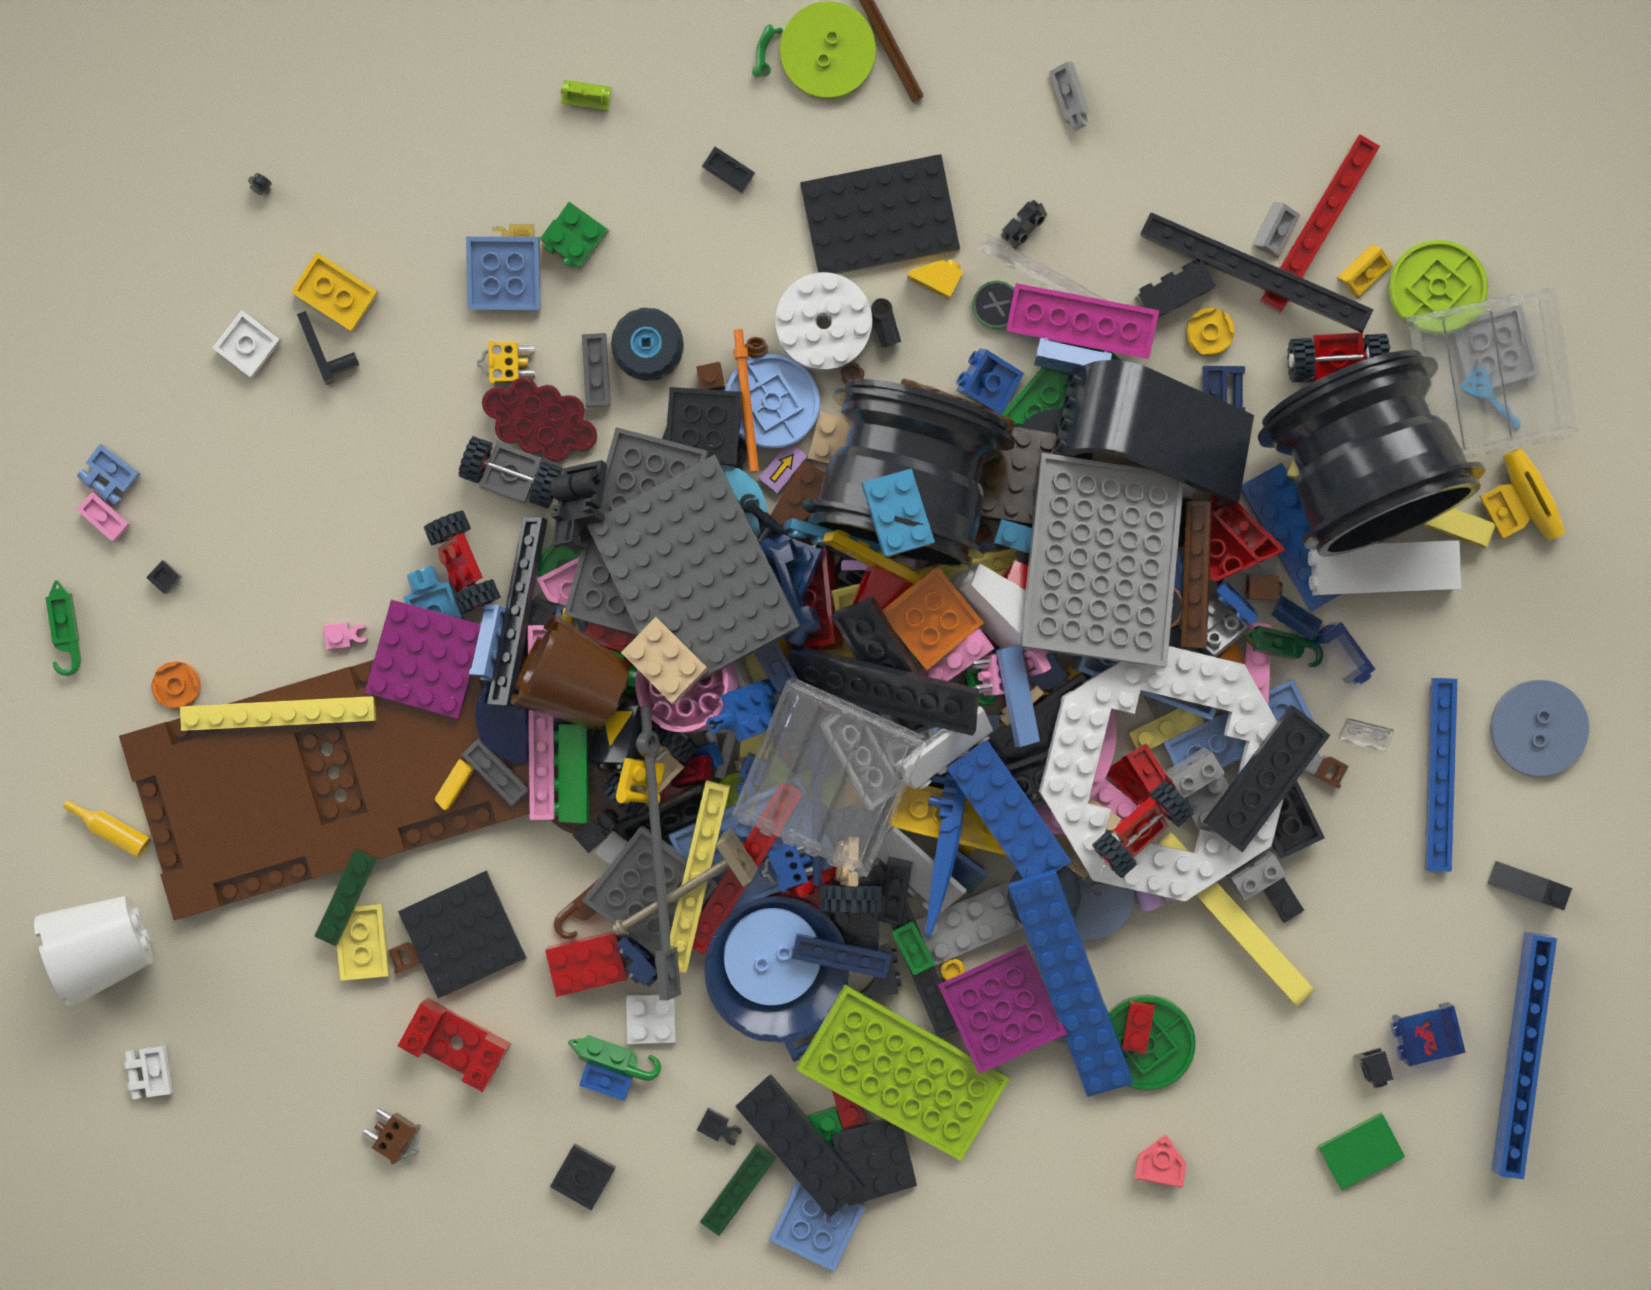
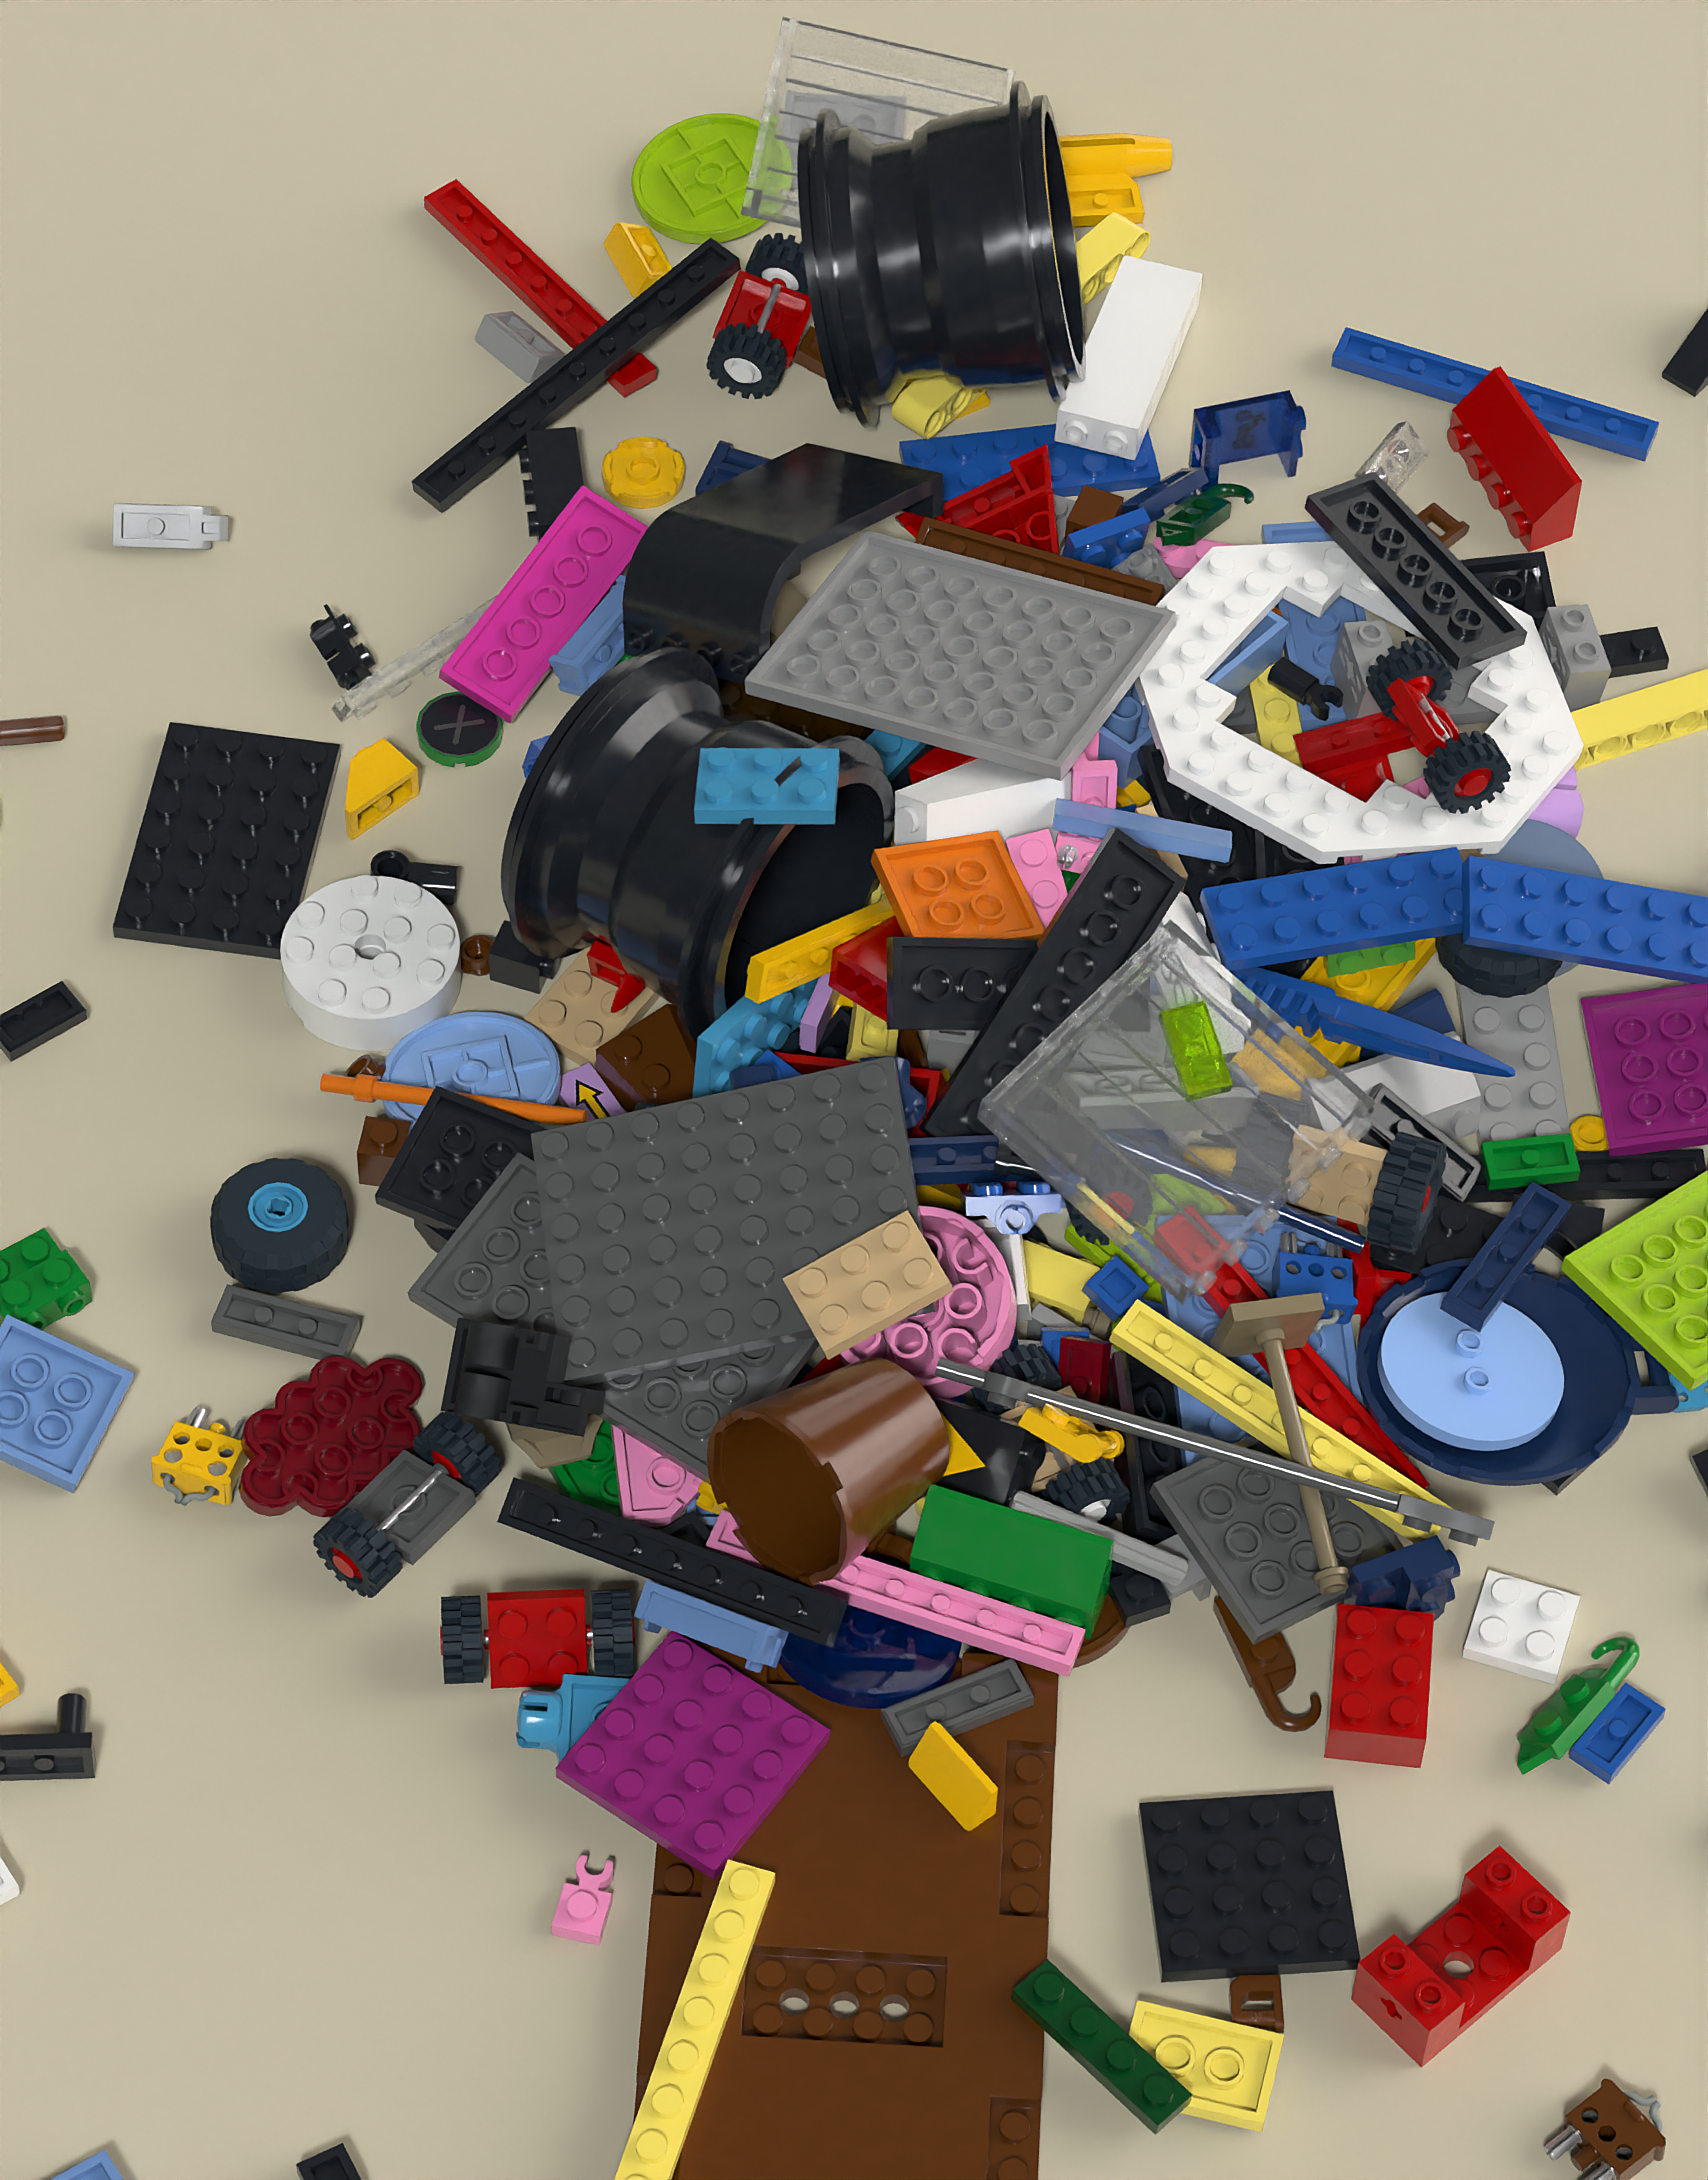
camera: 70 degrees left, 35 degrees down
(598, 810) = (1126, 1548): none -> light grey axle
(855, 778) = (1195, 1051): none -> clear neon green plate
(1181, 738) = (1304, 688): none -> black bar
(1386, 802) = (1515, 462): none -> red slope
(1539, 727) = (1465, 261): sand blue plate -> none

